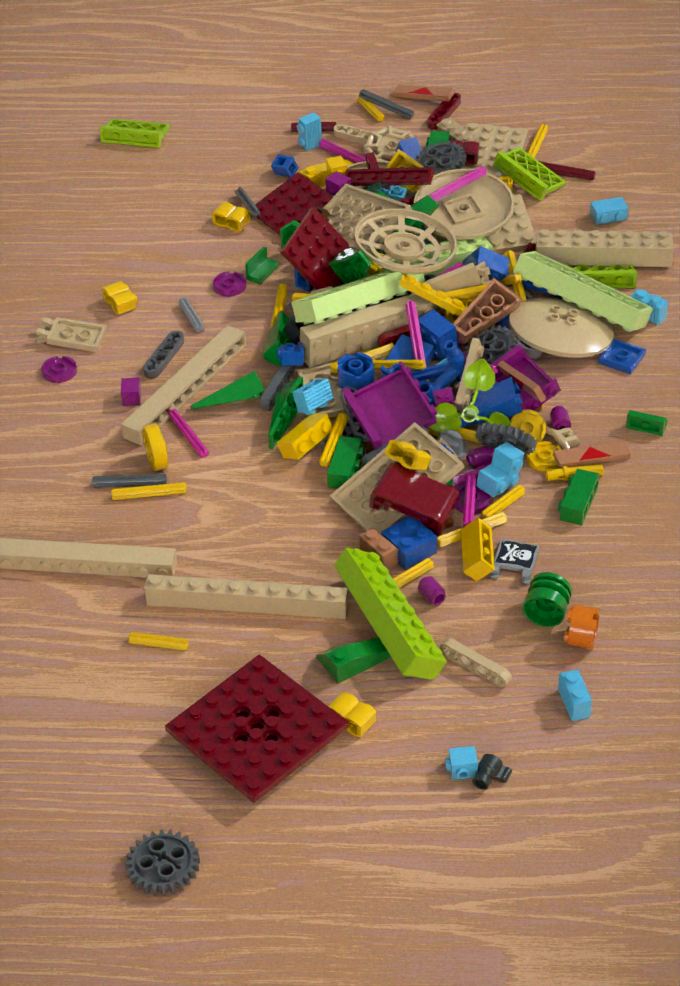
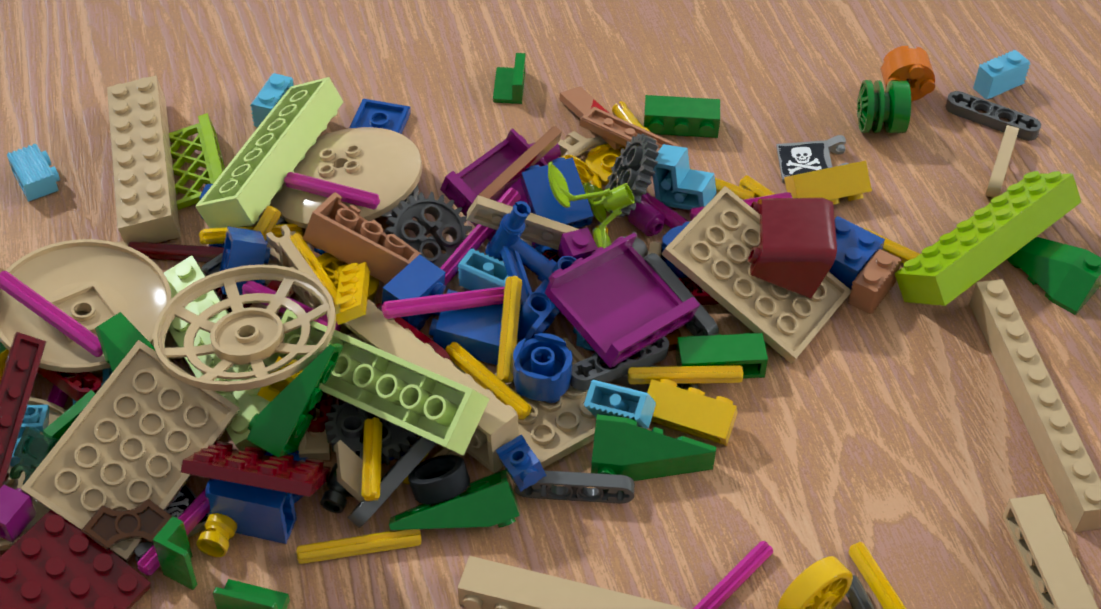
camera: 110 degrees left, 5 degrees up
(240, 390) = (616, 543): green wedge -> none
(407, 455) = (742, 237): yellow brick -> none
(431, 590) = (913, 218): magenta brick -> none
(532, 305) = (326, 189): none -> dark pink axle
(536, 682) = (959, 103): none -> dark grey beam
(556, 456) = (616, 128): none -> nougat tile

